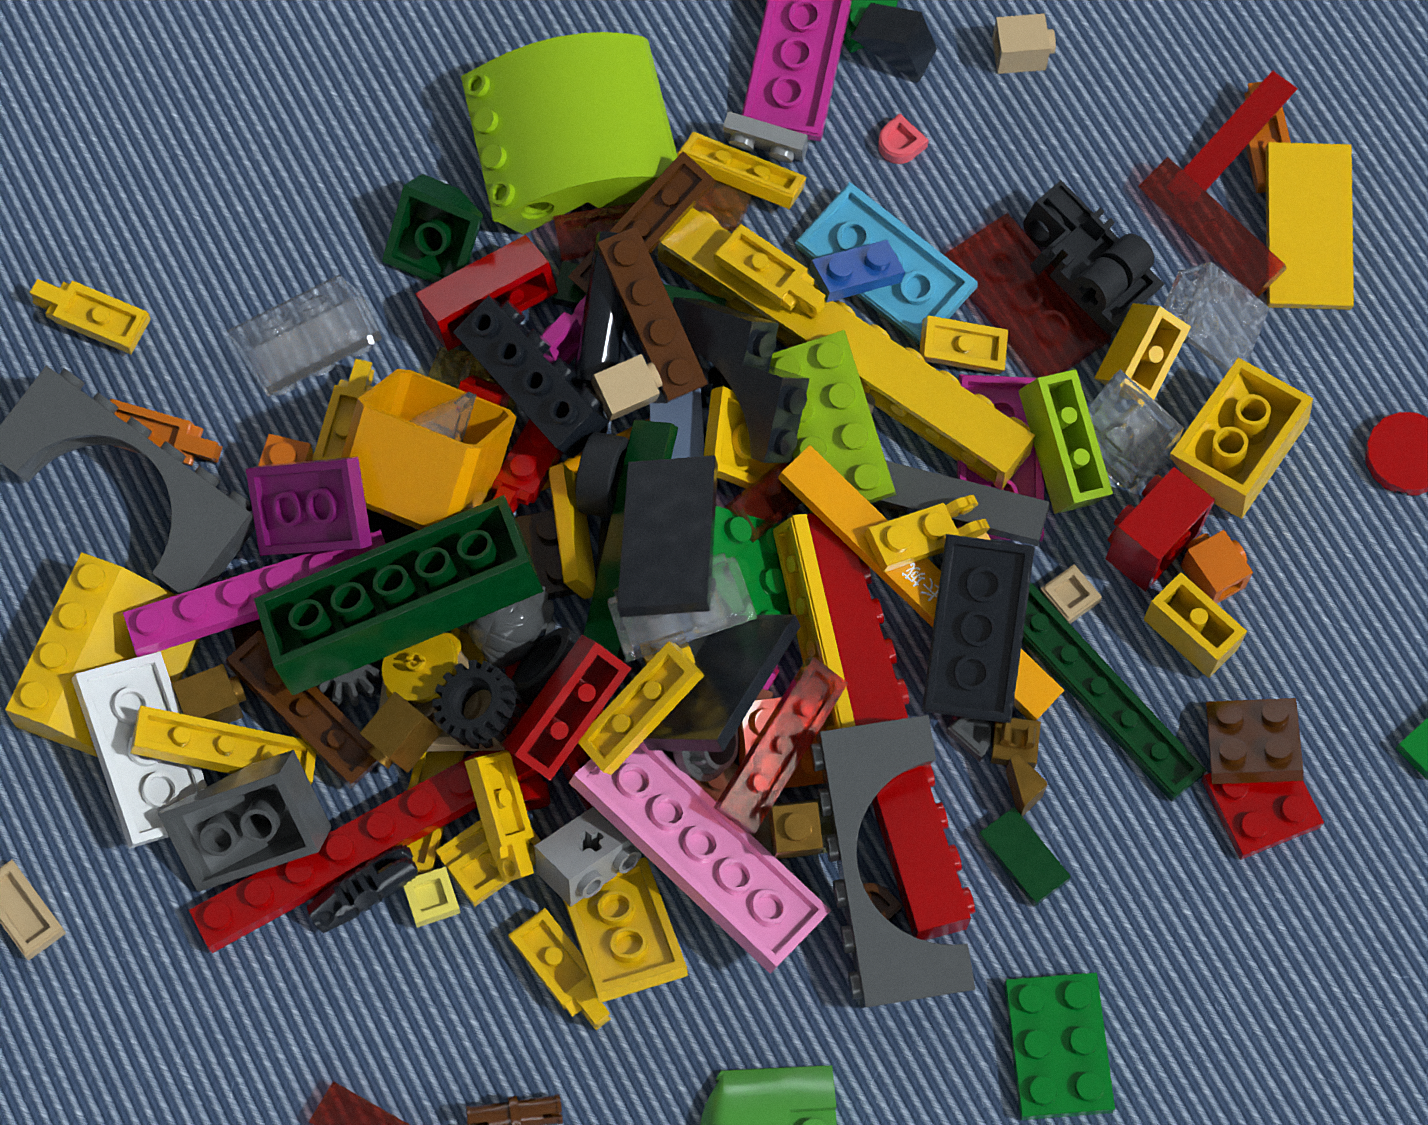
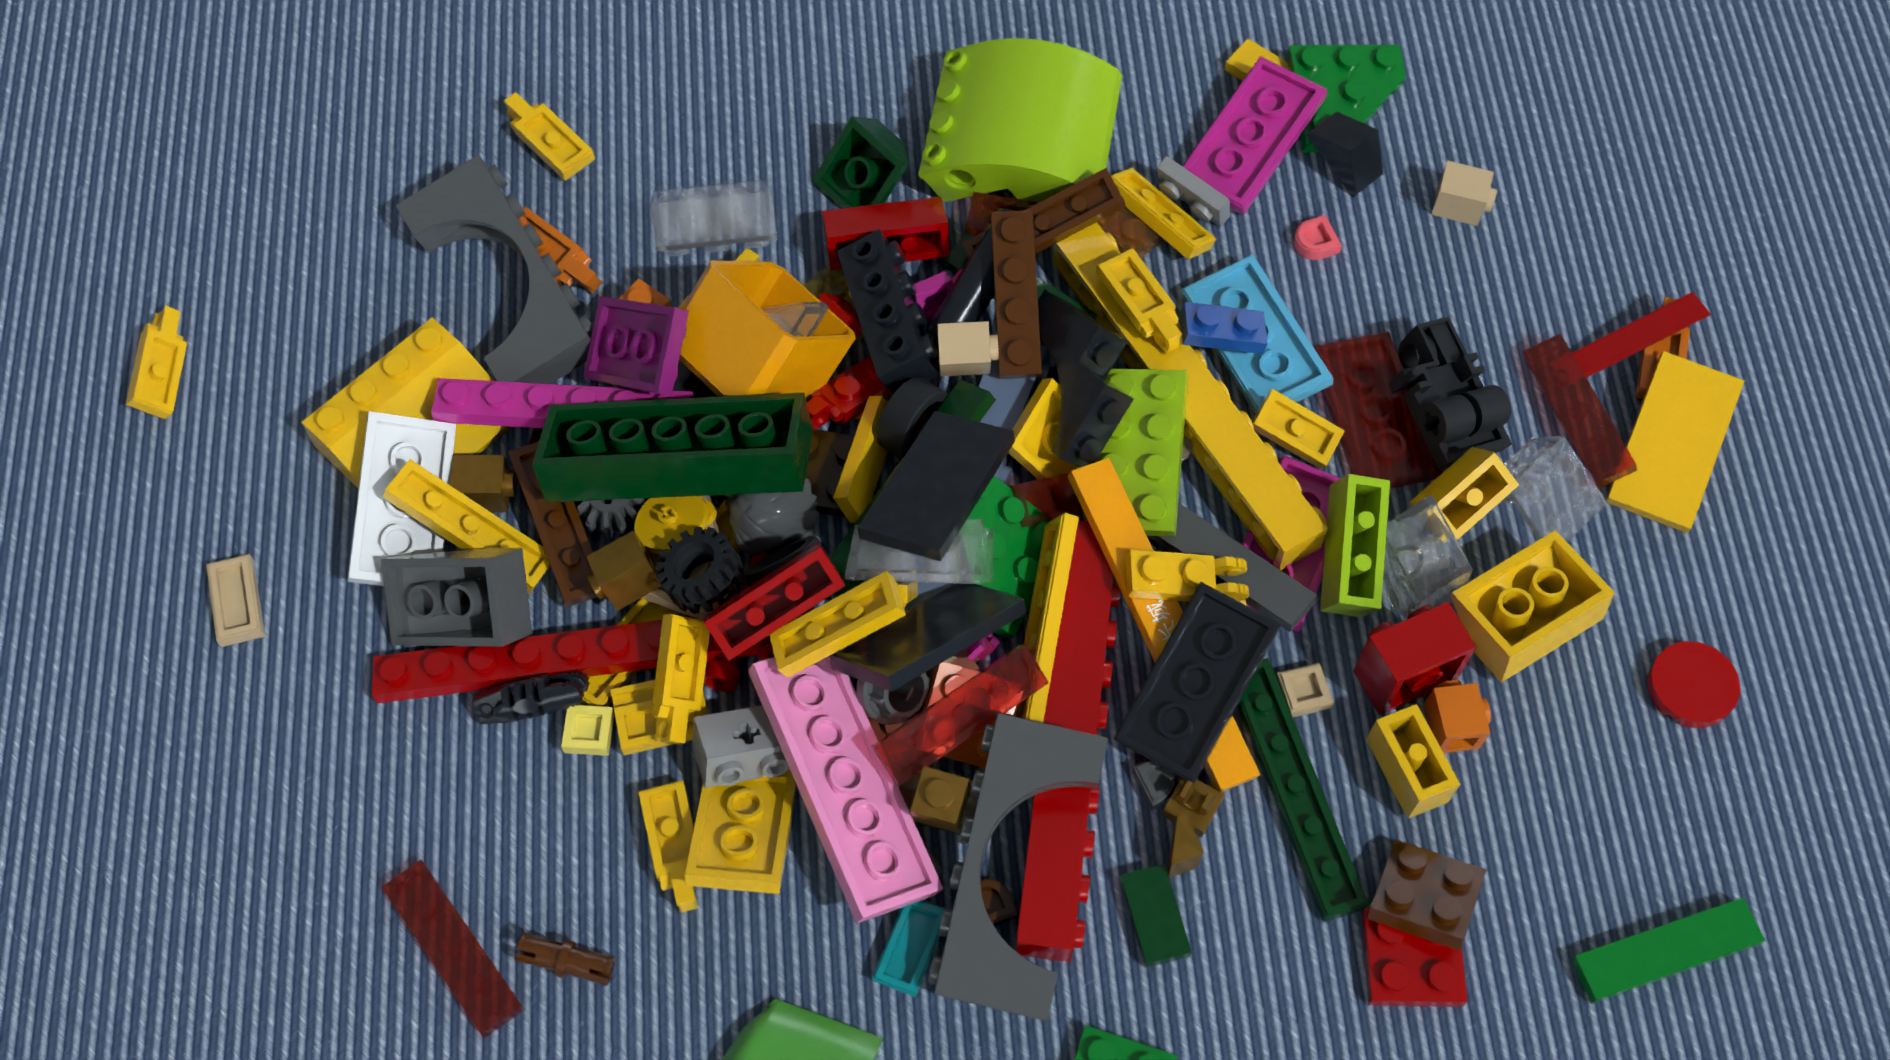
camera: 25 degrees right, 5 degrees down
(821, 975) = (910, 947): none -> teal tile

